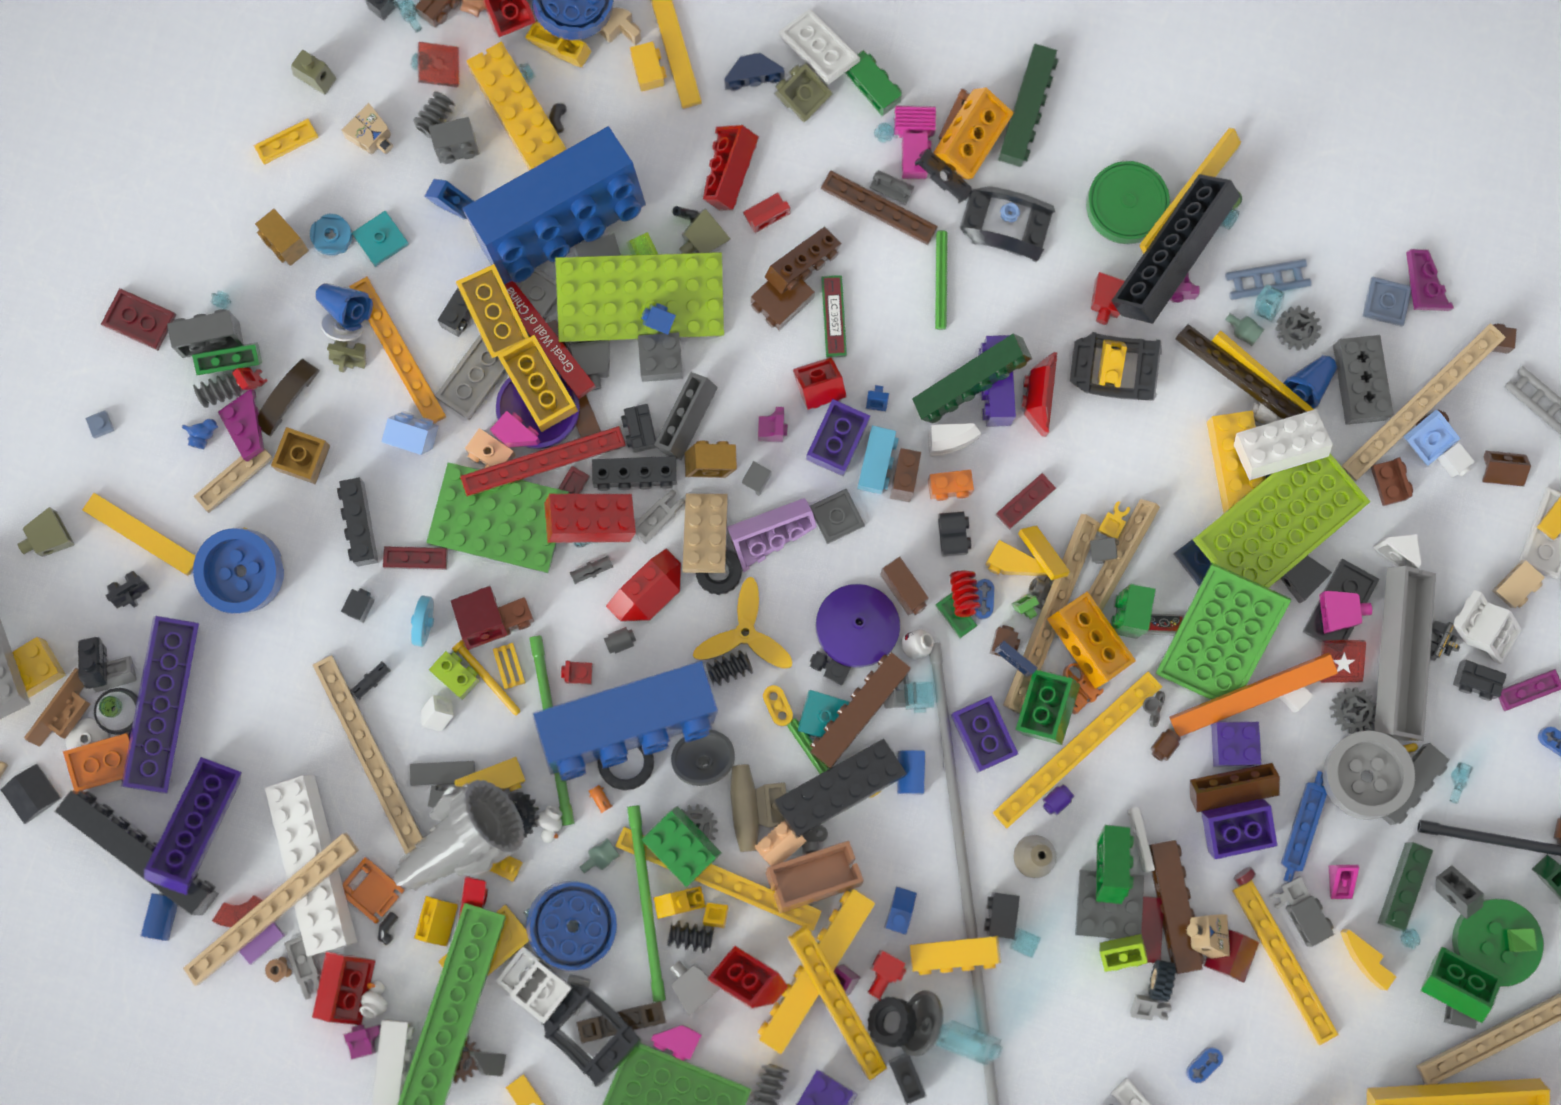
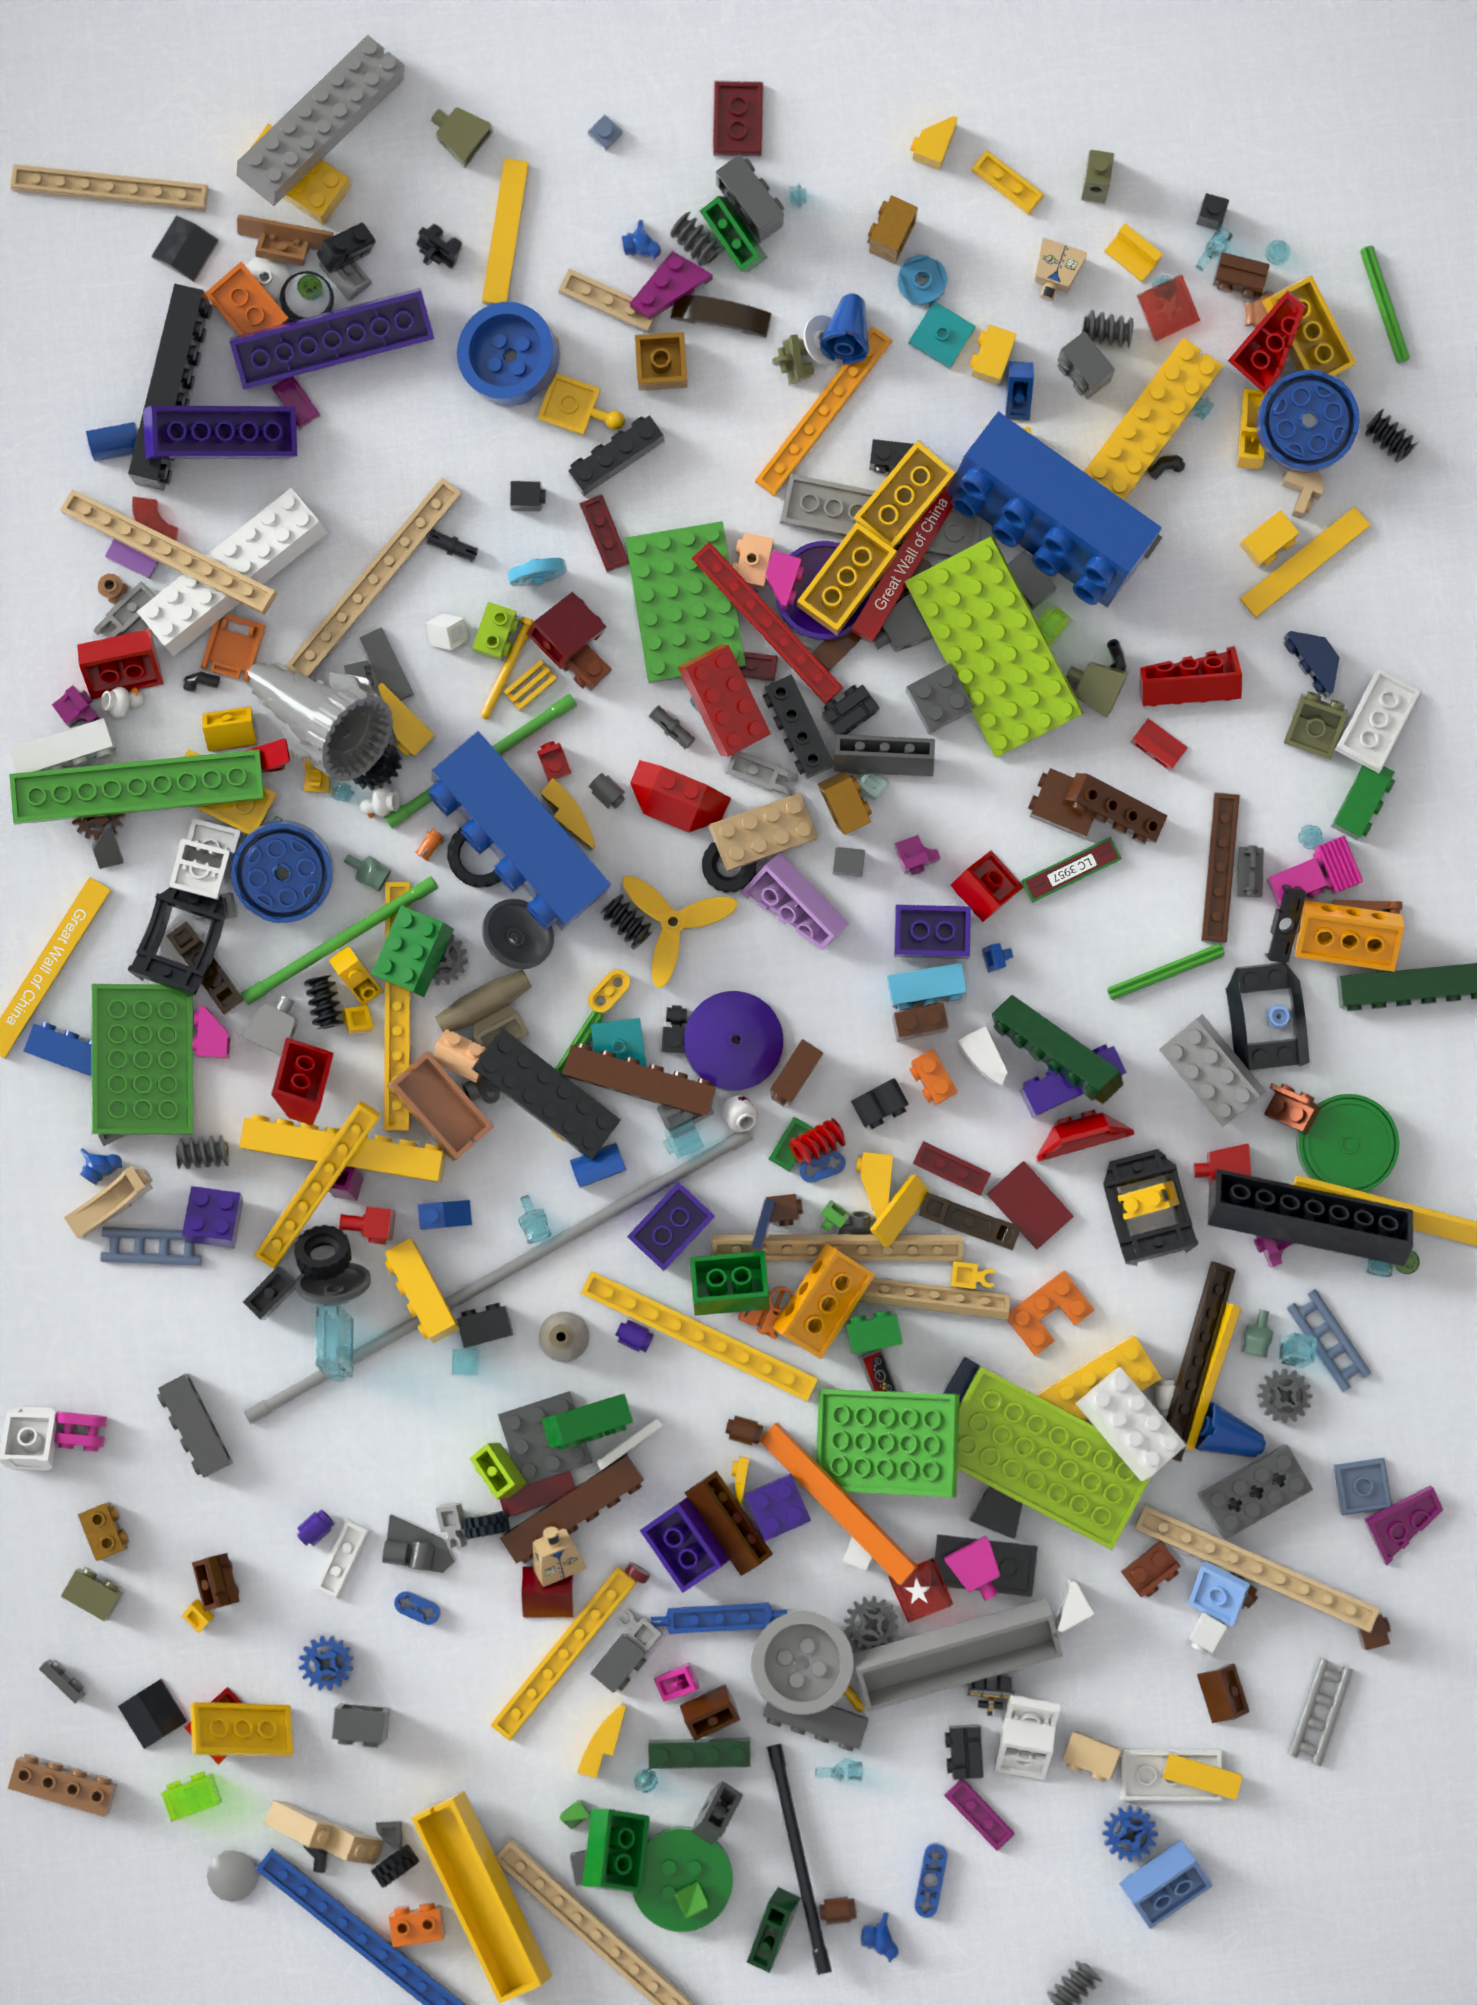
camera: 75 degrees right, 5 degrees up
(188, 757) = (292, 394): none -> magenta tile
(230, 181) = (934, 143): none -> yellow slope
(248, 379) = (720, 267): red plate -> none
(302, 540) = (571, 405): none -> yellow plate
(384, 72) = (1134, 253): none -> yellow panel
(410, 433) = (735, 466): light blue brick -> none
(413, 205) = (993, 354): none -> yellow brick
(527, 851) = (342, 792): none -> clear light blue plate
(622, 676) = (568, 812): none -> yellow slope
(658, 318) = (976, 677): blue brick -> none
(704, 434) = (872, 786): none -> light aqua slope
(837, 516) = (846, 968): dark grey tile -> none
(935, 842) = (533, 1222): none -> clear light blue piece
(1032, 275) = (1212, 1070): none -> light grey brick
(1073, 504) = (969, 1221): none -> dark brown slope
(1077, 455) = (1030, 1205): none -> dark red tile
(1085, 230) = (1292, 1109): none -> copper bracket
(1104, 550) = (931, 1275): dark grey panel -> none
(1152, 465) = (1057, 1292): none -> orange plate
(1153, 706) = (780, 1400): dark grey piece -> none
(1155, 1046) = (415, 1547): none -> dark grey panel
(1198, 762) = (740, 1471): none -> yellow plate
(1377, 864) = (710, 1712): none -> reddish brown brick
(1415, 1005) = (575, 1814): none -> bright green slope

